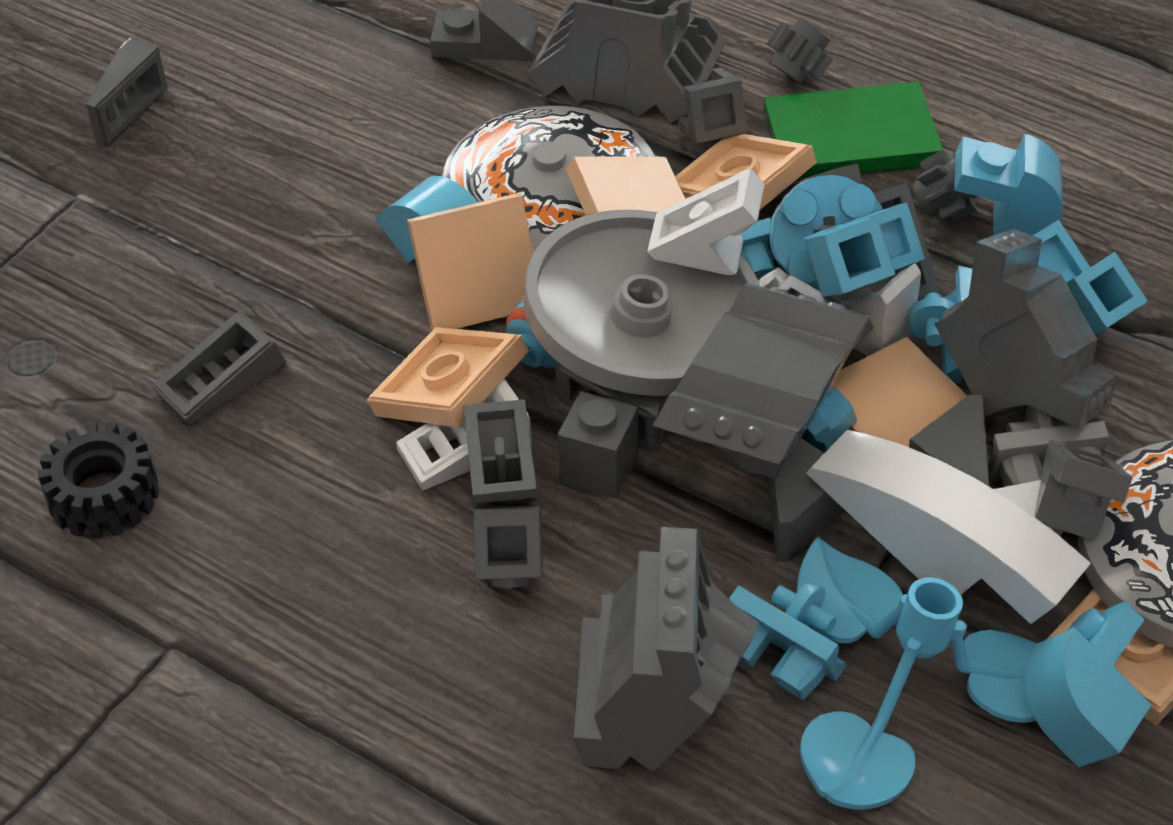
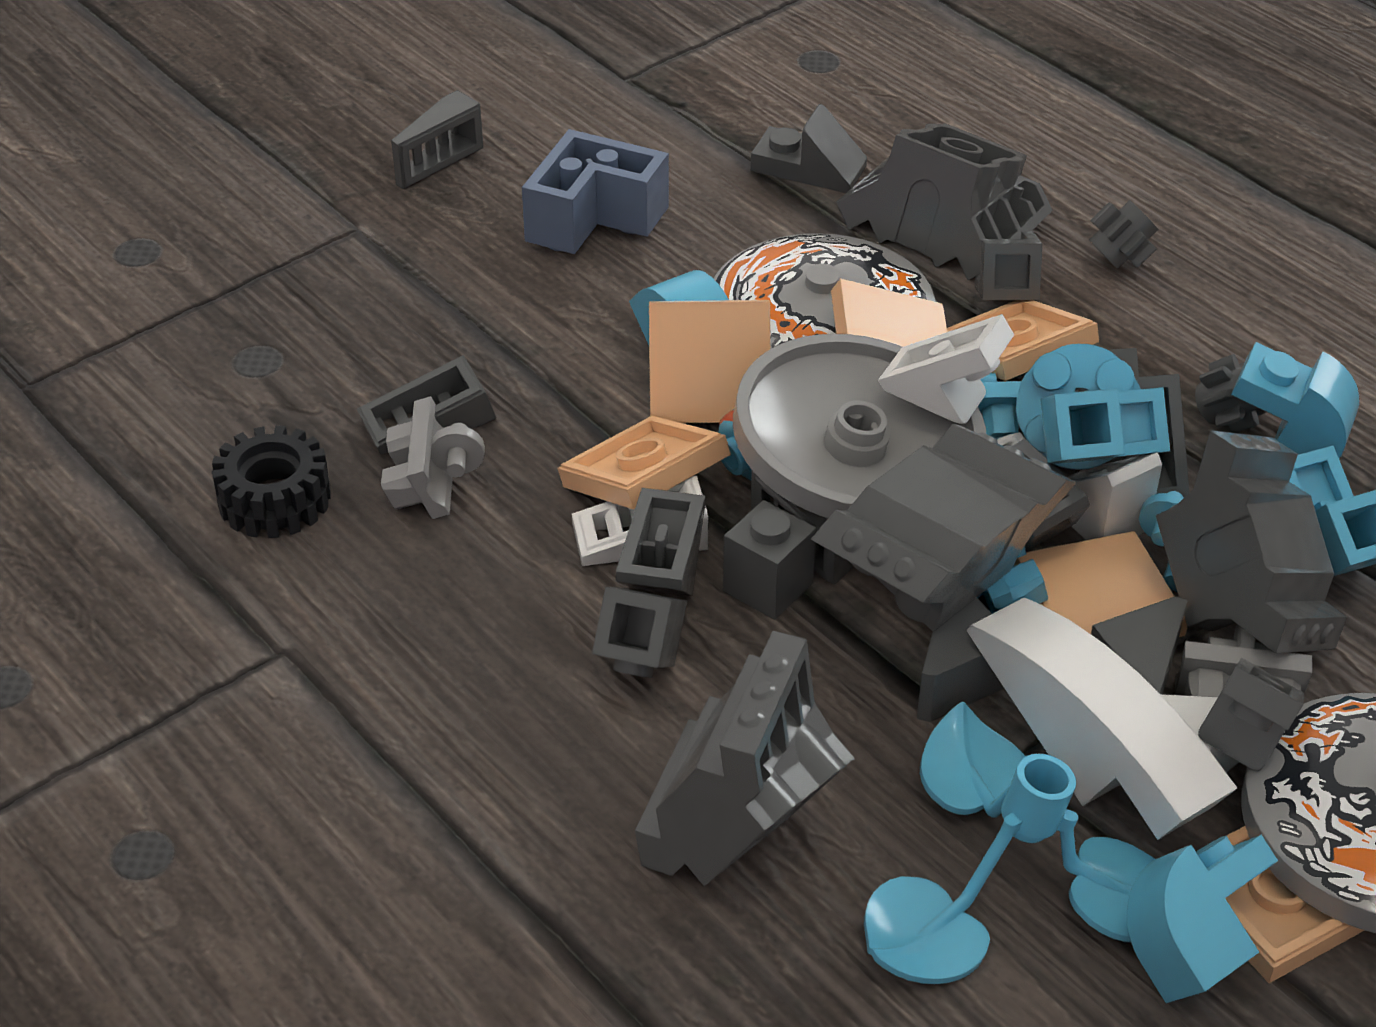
camera: 15 degrees right, 5 degrees down
(249, 417) = (428, 460): none -> light grey hips
(299, 106) = (594, 183): none -> sand blue brick
(807, 652) = (908, 810): medium azure hips -> none
(861, 126) = (1166, 321): green tile -> none

